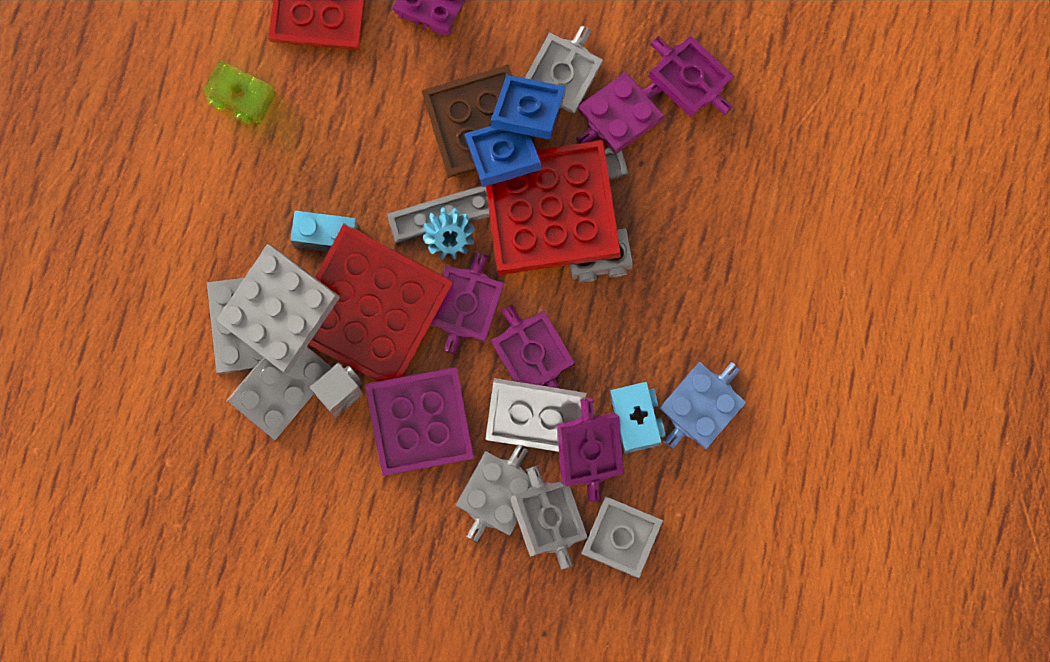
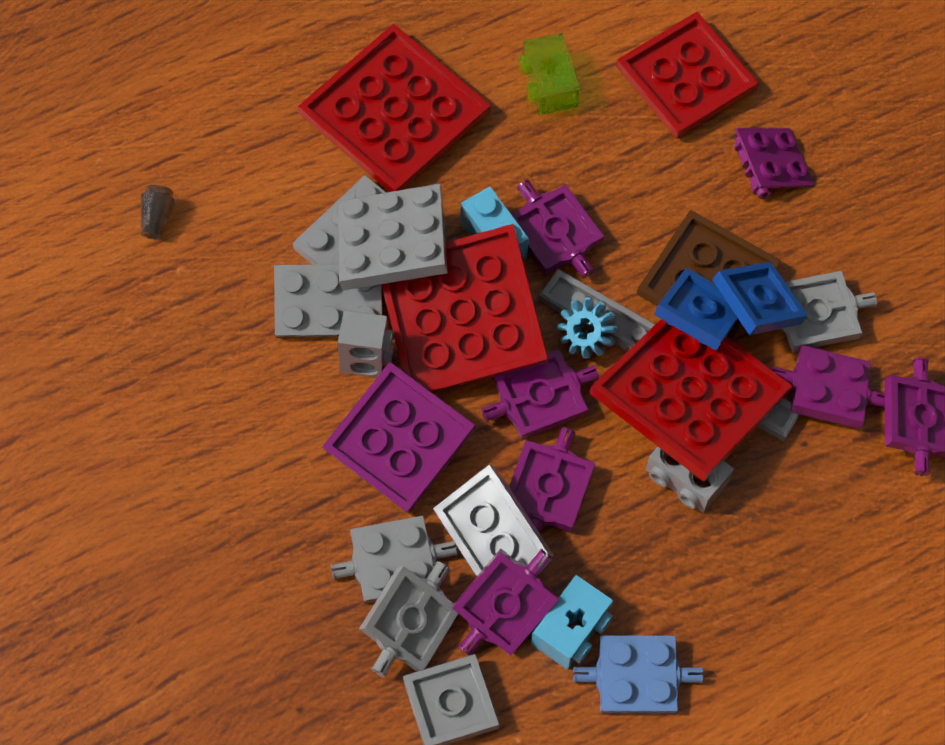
camera: 40 degrees right, 15 degrees down
(112, 445) = (155, 210): none -> clear smoke cone
(173, 220) = (394, 109): none -> red plate
(357, 190) = (557, 229): none -> magenta plate

